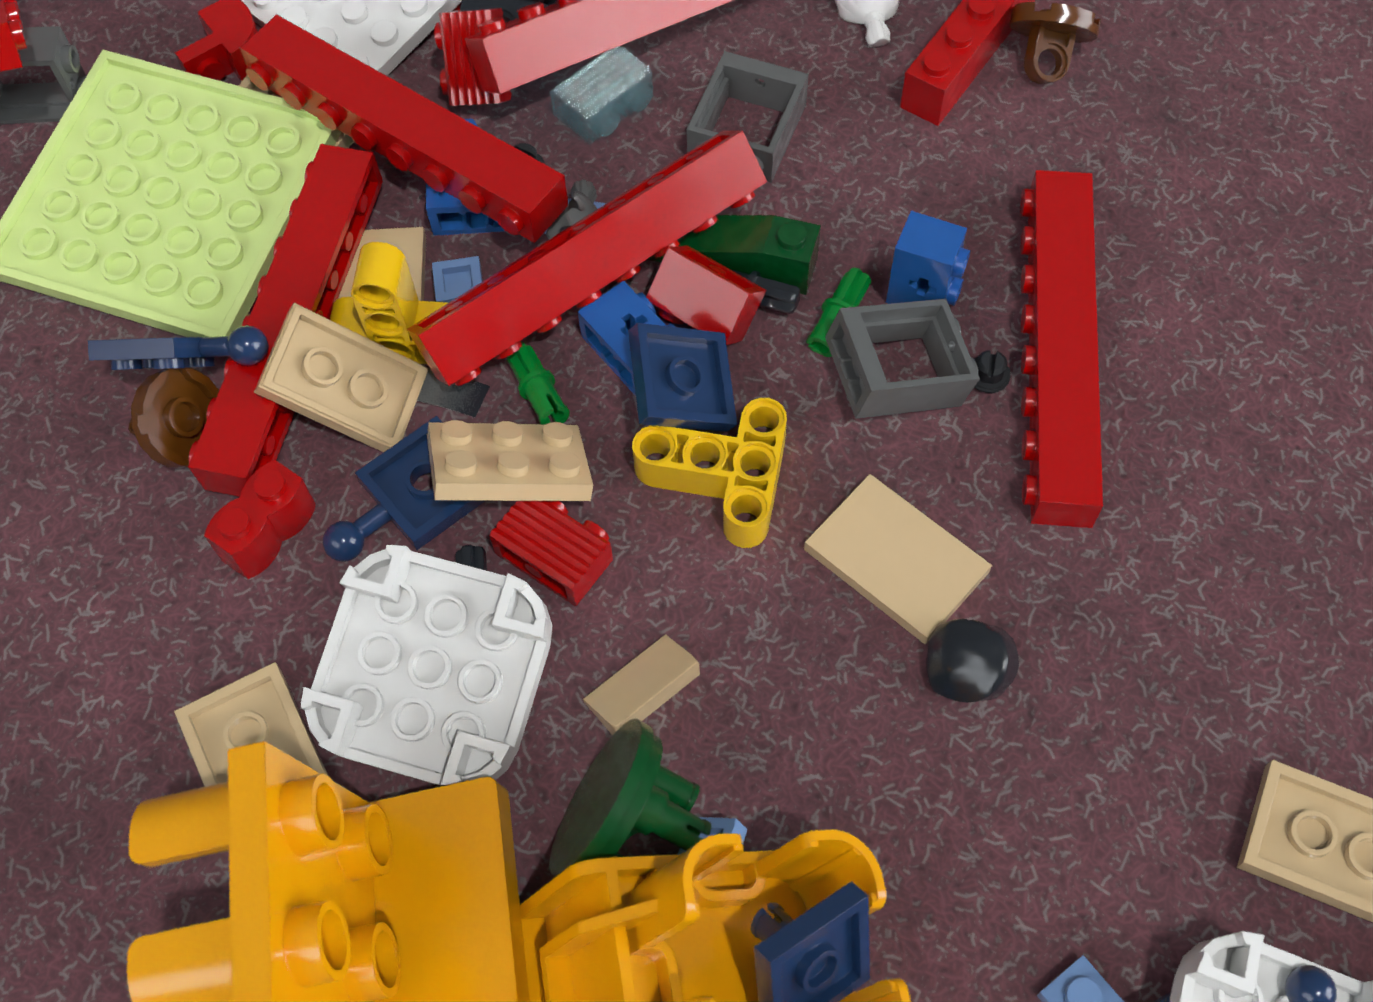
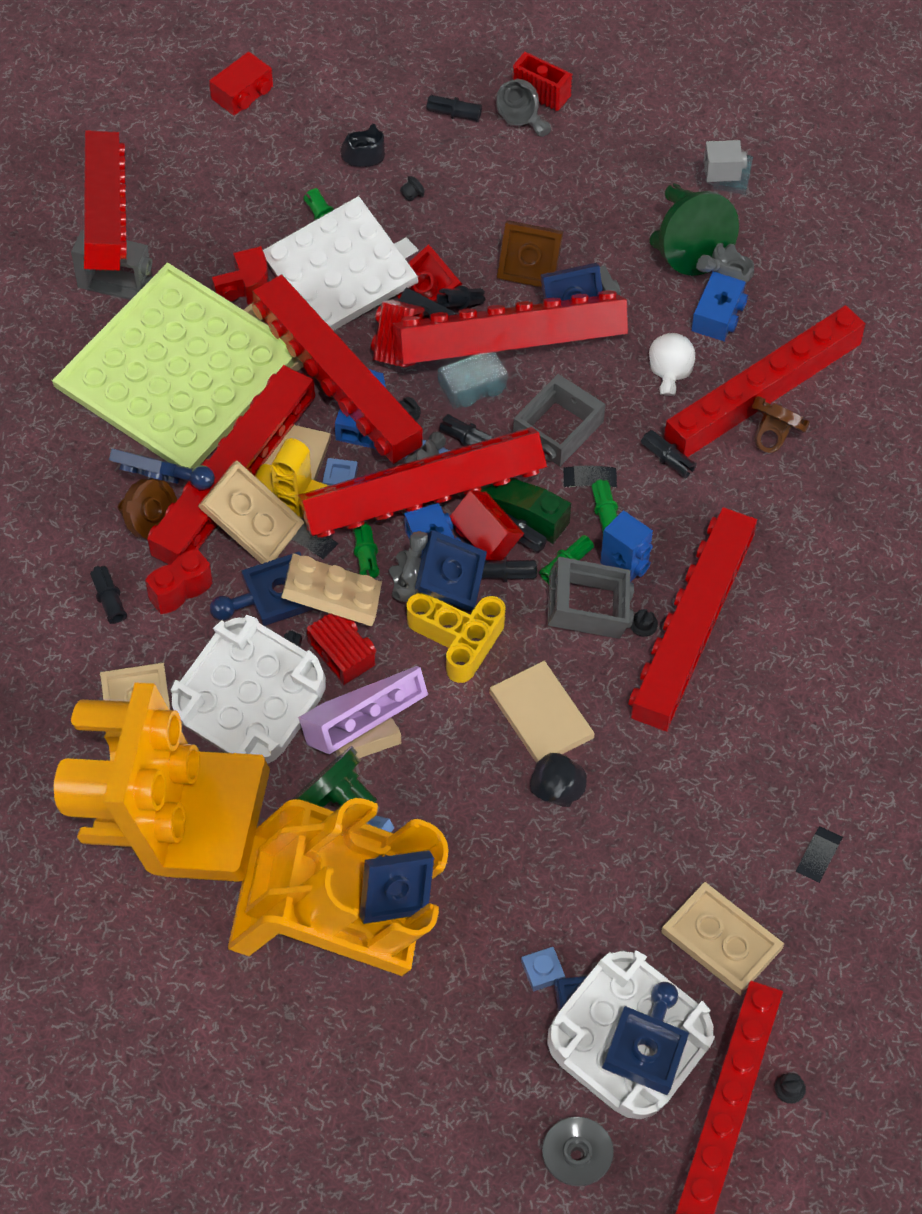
camera: 15 degrees right, 5 degrees down
(153, 574) = (108, 595): none -> black axle
(609, 656) = (355, 713): none -> lavender slope
(614, 395) = (407, 570): none -> dark grey hair
(617, 171) = (466, 433): none -> black axle
(765, 349) = (510, 569): none -> black axle
(818, 184) = (588, 475): none -> black sticker
(863, 221) = (605, 506): none -> green axle
(917, 121) = (668, 453): none -> black axle

